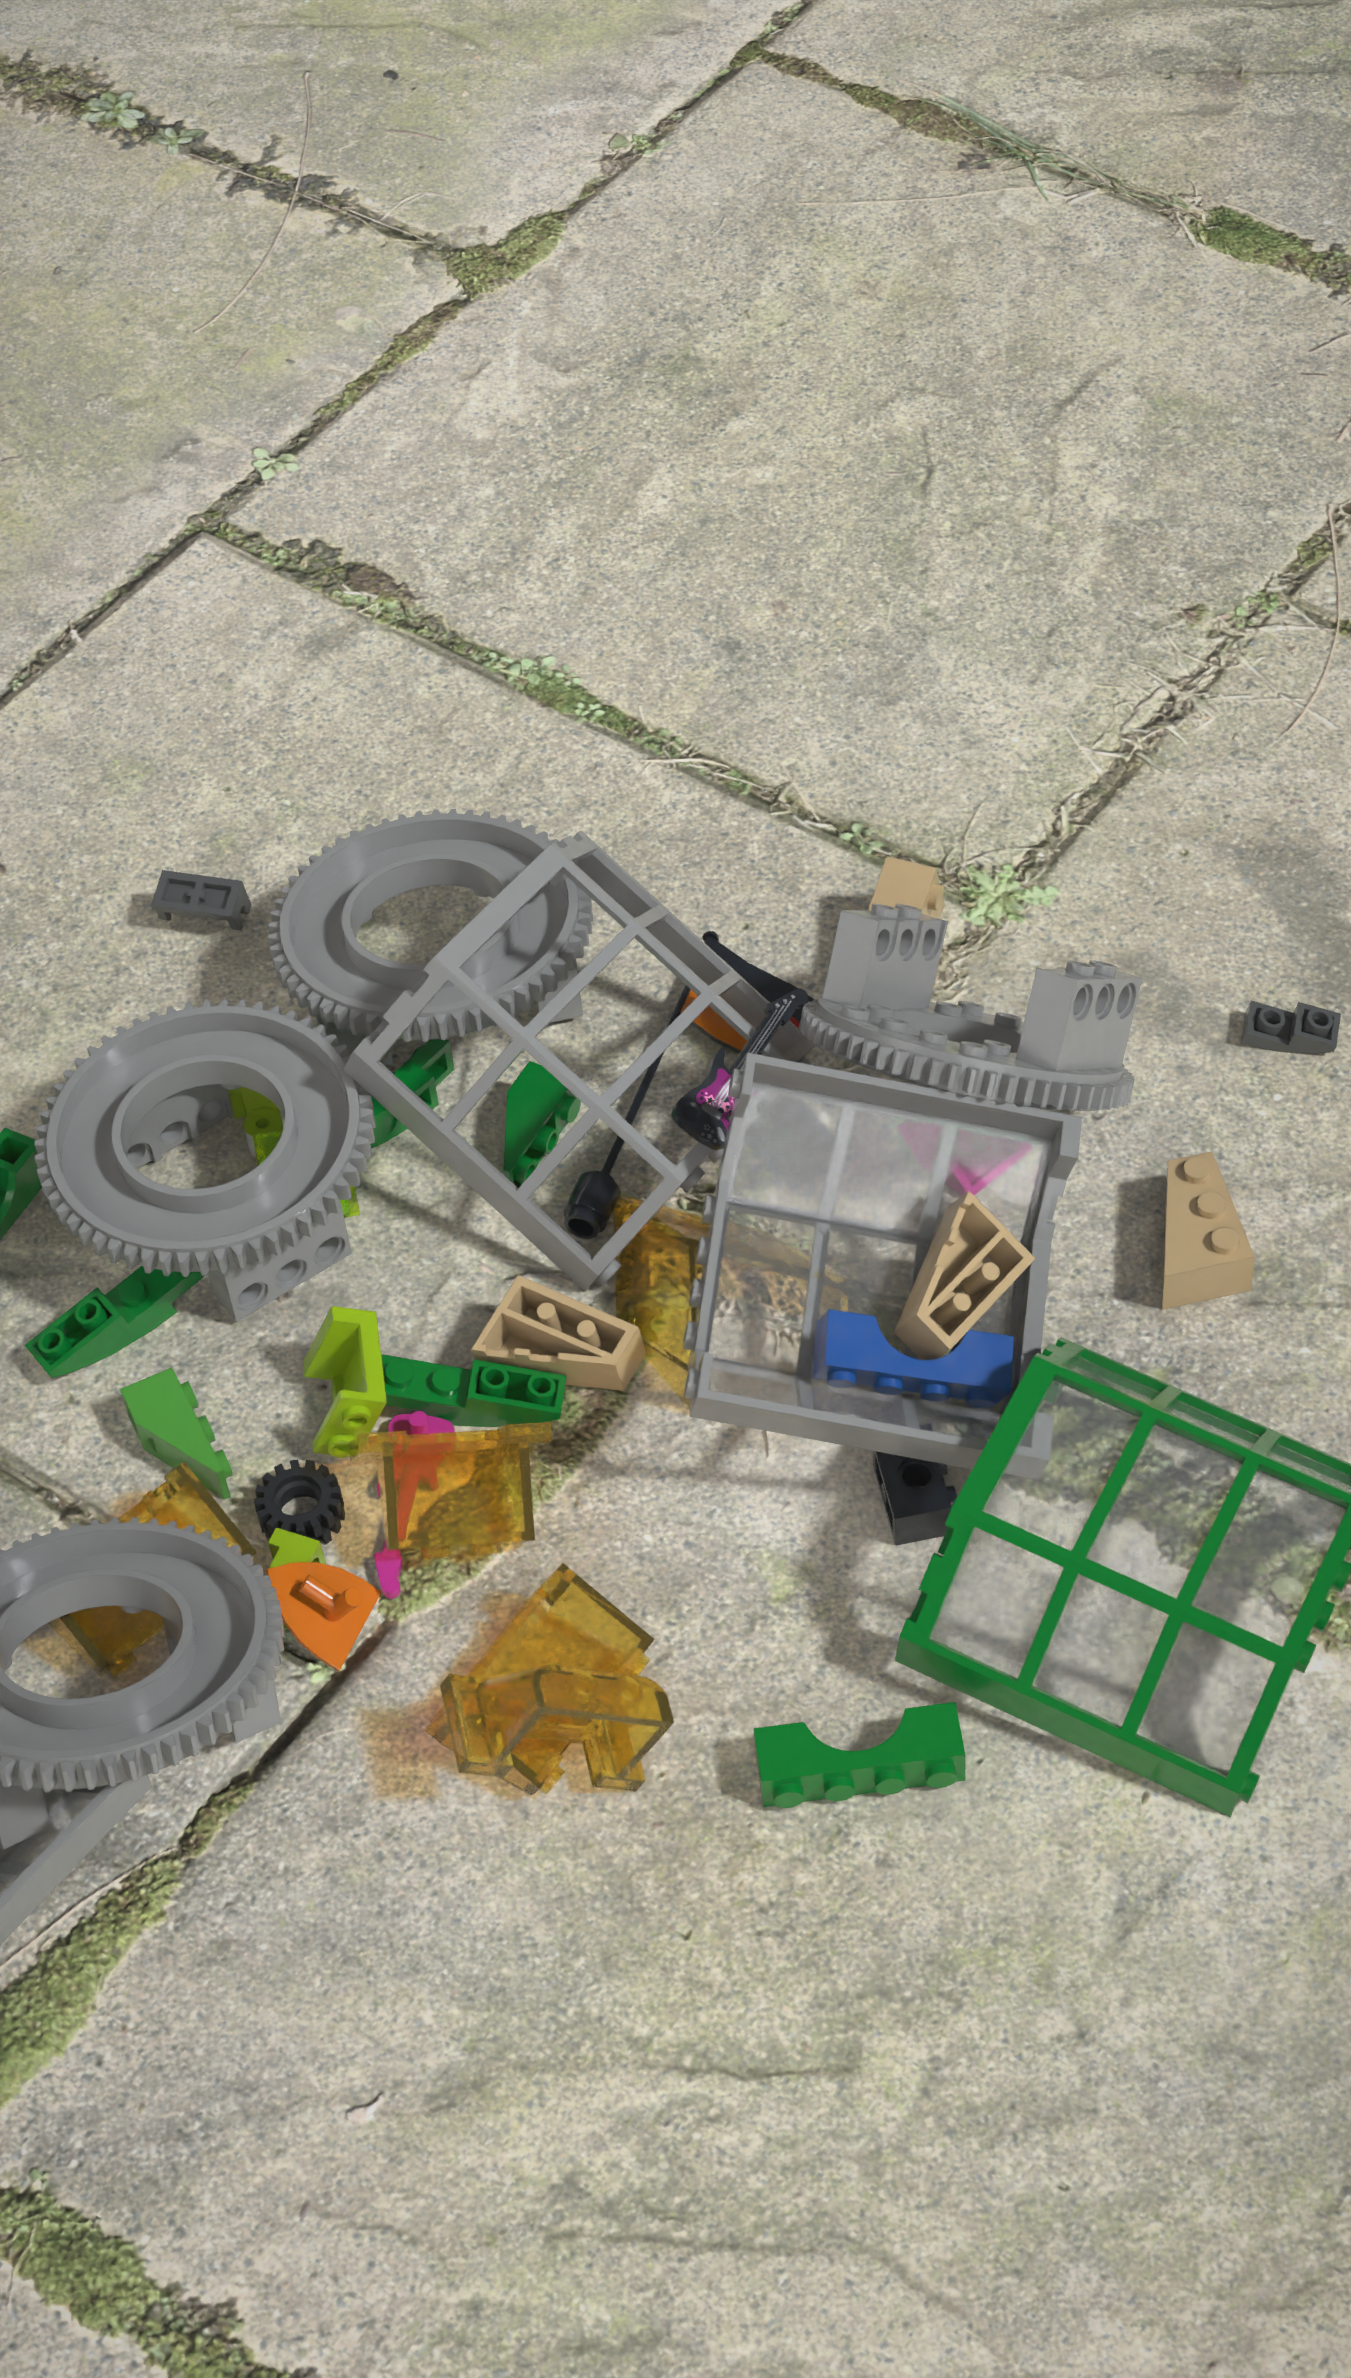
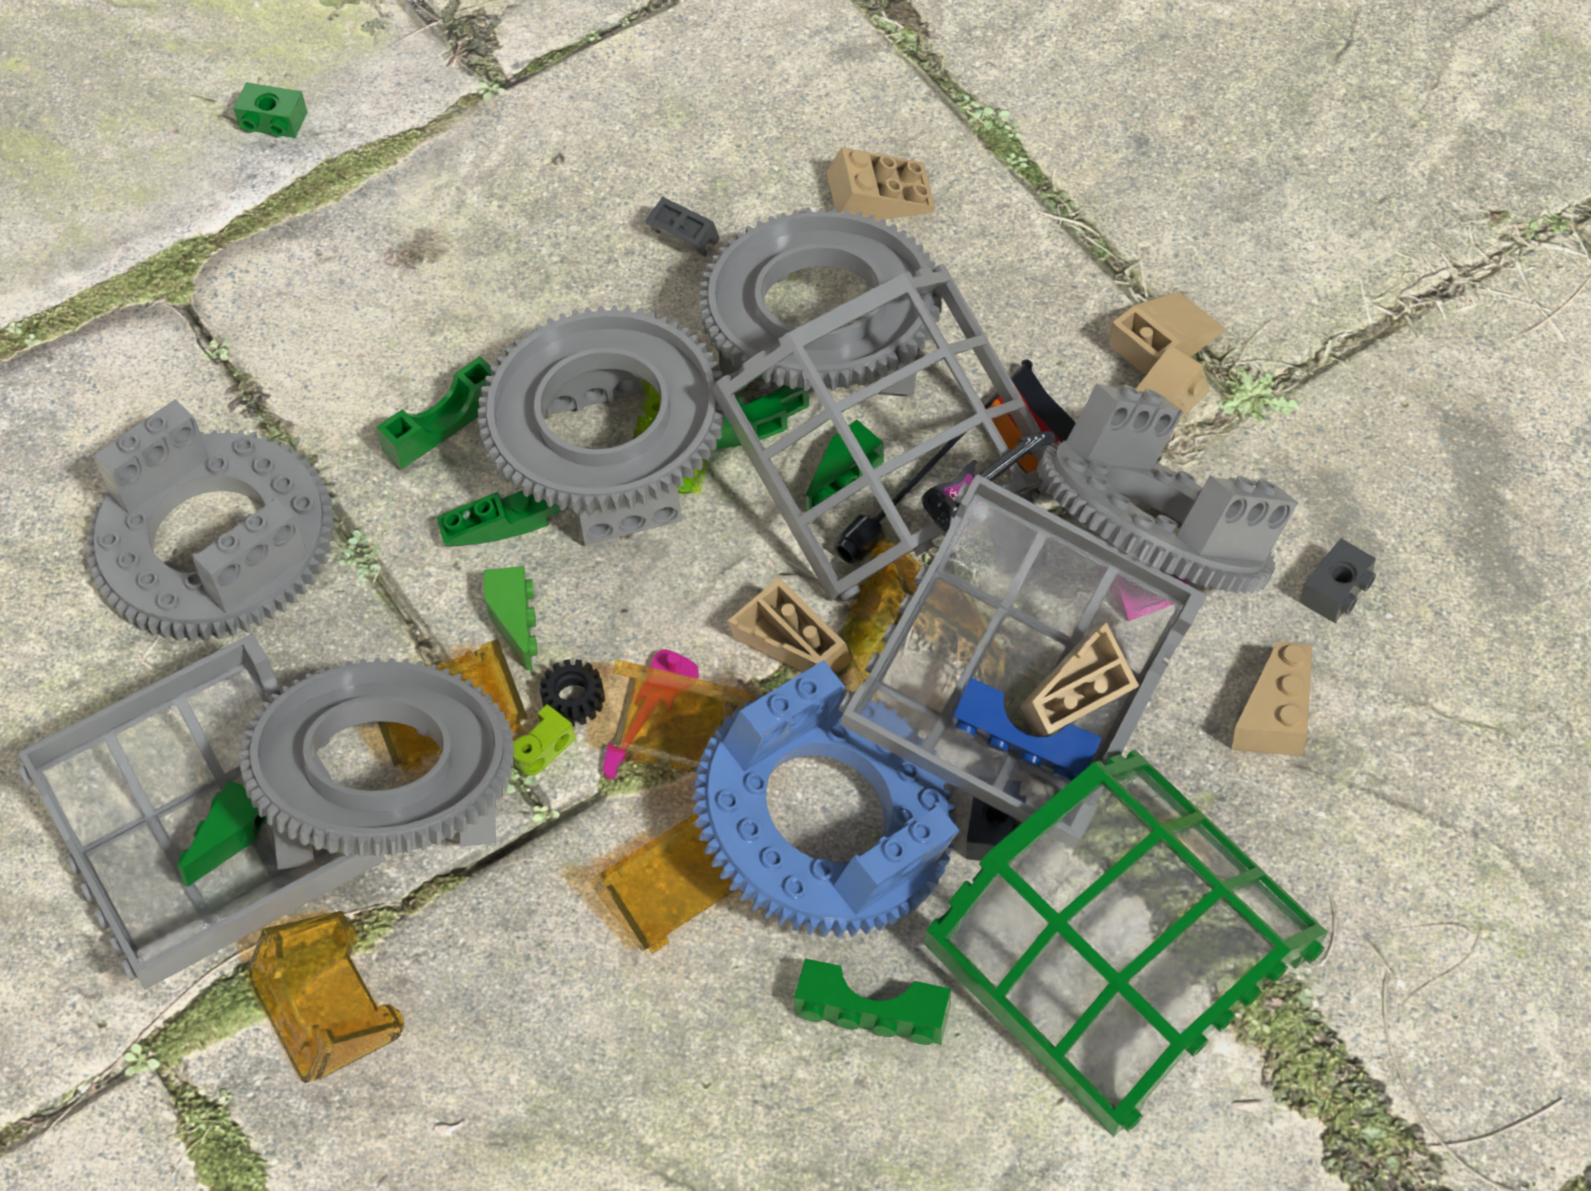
camera: 20 degrees right, 5 degrees up
(118, 2003) = (318, 996): none -> clear yellow windscreen
(323, 1607) = (557, 770): orange shield -> none
(350, 1357) = (643, 593): lime panel -> none
(429, 779) = (879, 185): none -> tan slope
(475, 1397) = (717, 652): green slope -> none
(606, 1712) = (627, 887): clear yellow windscreen -> none
(738, 1641) = (812, 892): none -> medium blue piece
(851, 849) = (1154, 325): none -> tan slope
(1203, 1073) = (1342, 564): none -> dark grey brick
(1302, 1031) = (1414, 566): dark grey slope -> none

